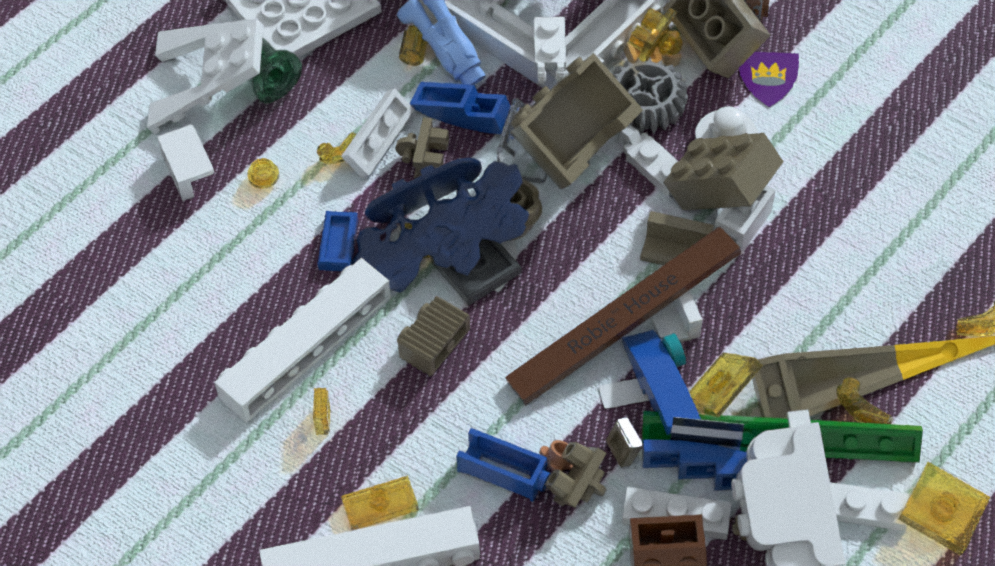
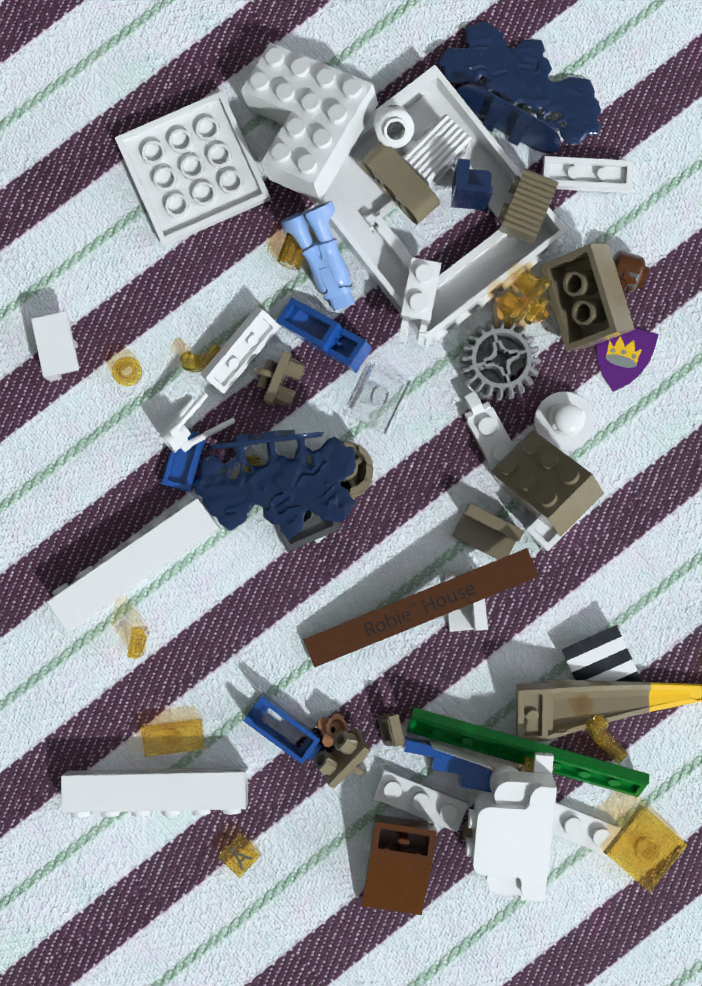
camera: 10 degrees right, 30 degrees up
(229, 60) = (109, 245): white wing -> none
(277, 75) = (145, 256): clear green piece -> none
(328, 208) = (176, 434): none -> white plant
(433, 335) = (249, 585): dark tan brick -> none
(574, 119) = (414, 395): dark tan cylinder -> none
(622, 393) = (414, 670): white sticker -> none
(659, 378) = (437, 680): blue slope -> none
(675, 349) = (456, 646): teal tile -> none
(723, 383) = (487, 701): clear yellow plate -> none
(832, 328) = (602, 658): none -> sticker

